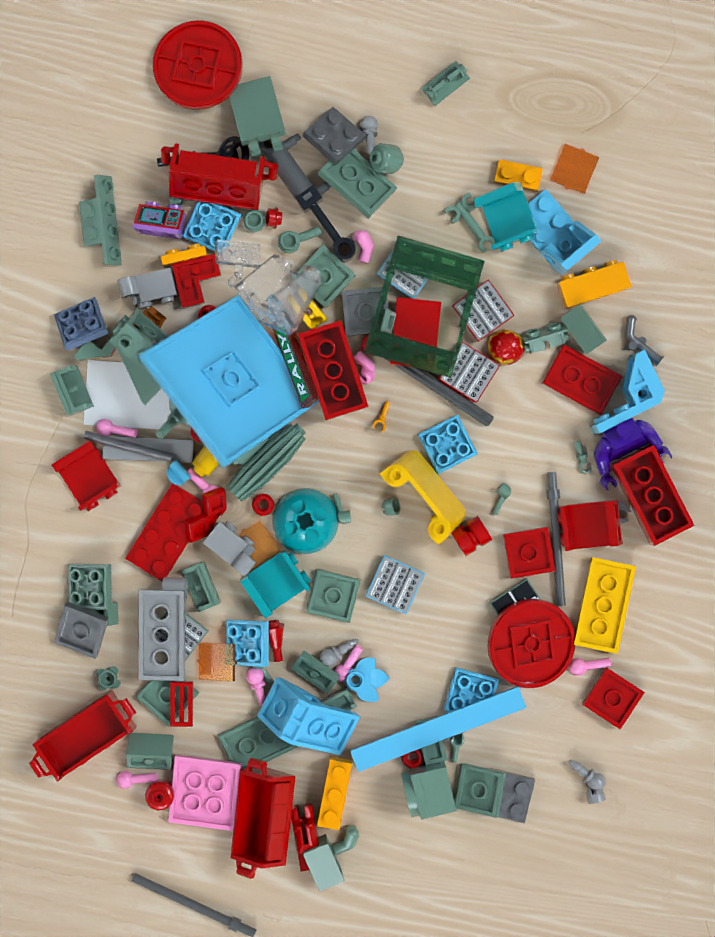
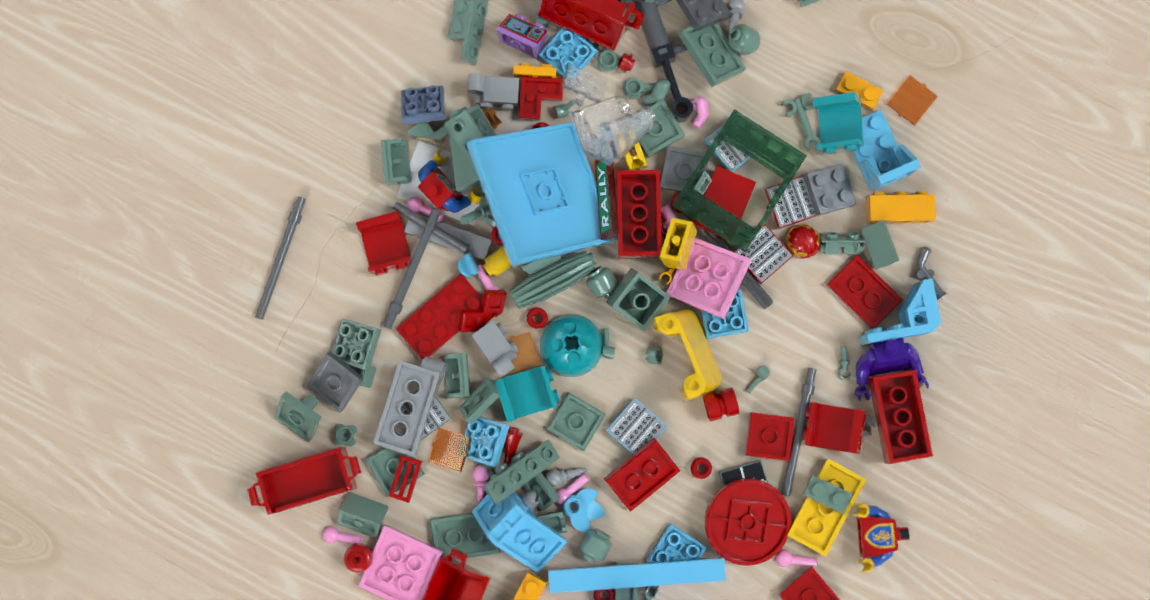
camera: 20 degrees right, 5 degrees down
(56, 673) = (298, 415): none -> sand green tile
(118, 536) = (396, 306): none -> dark grey bar
(126, 405) = (441, 190): none -> torso
(224, 285) = (562, 110): none -> sand green hand
(231, 605) = (479, 400): none -> sand green plate
(292, 662) = (519, 471): none -> sand green bracket
(311, 686) = (531, 499): none -> light grey hinge
(317, 239) = (658, 93): none -> sand green arm
(317, 449) = (601, 282): none -> sand green head
(357, 457) = (638, 299): none -> sand green brick
(381, 389) = (678, 244): none -> yellow brick
(389, 711) = (595, 545): none -> sand green head
(414, 628) = (642, 474): none -> red tile
(421, 413) = (709, 278): none -> bright pink plate
(475, 609) = (708, 468): none -> red plate
(517, 287) = (829, 190): none -> flat silver plate
(602, 592) = (827, 494): none -> sand green plate
(662, 618) = (877, 536): none -> torso

